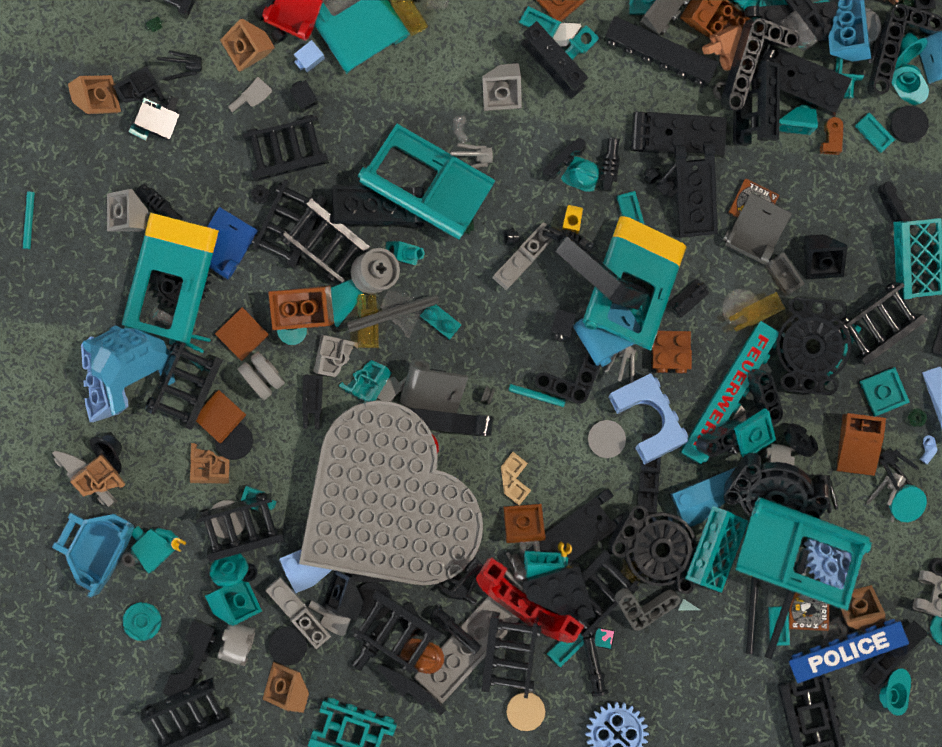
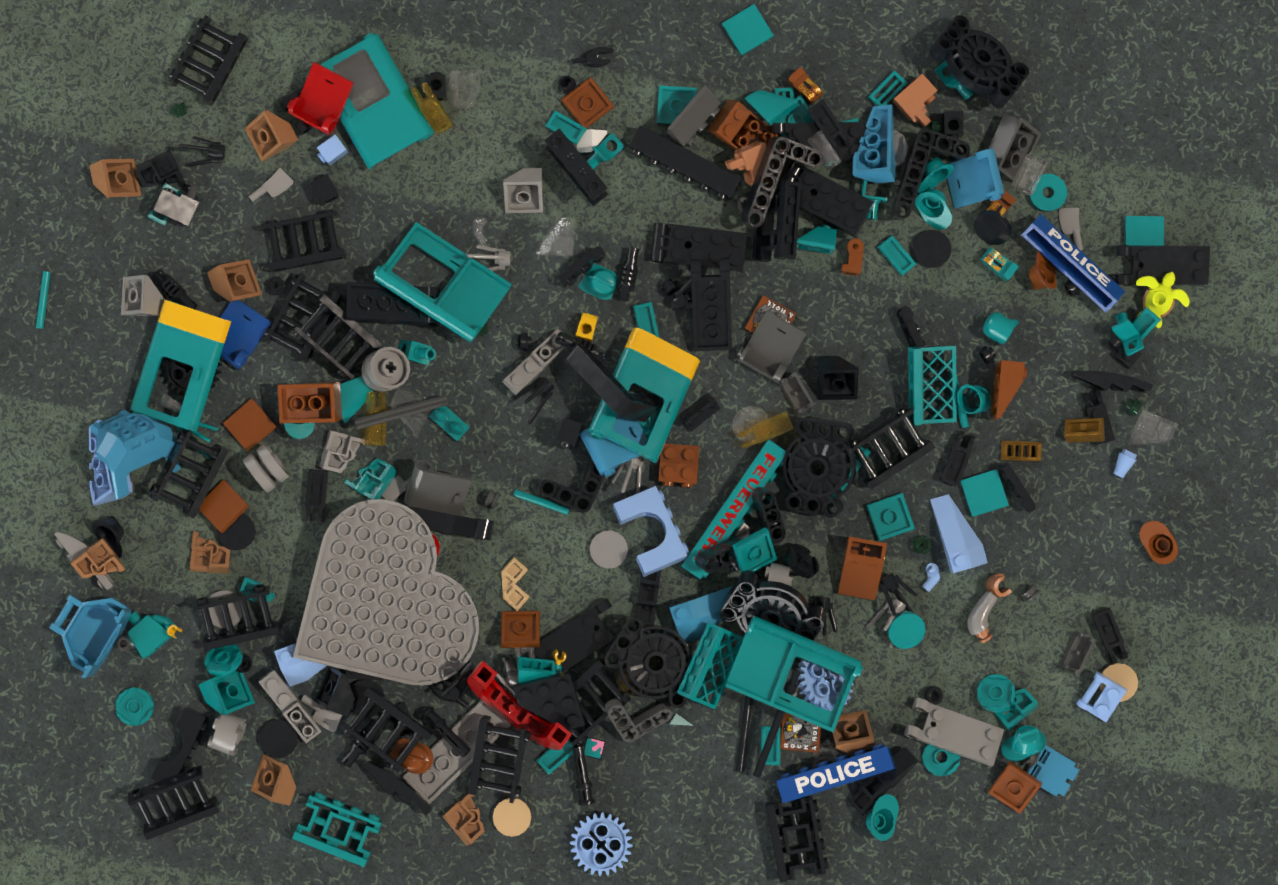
camera: 10 degrees right, 0 degrees up
(219, 191) = (235, 280): none -> medium nougat slope
(483, 723) = (468, 826): none -> medium nougat slope
(532, 281) = (543, 388): none -> black plant
(540, 133) = (559, 239): none -> clear slope

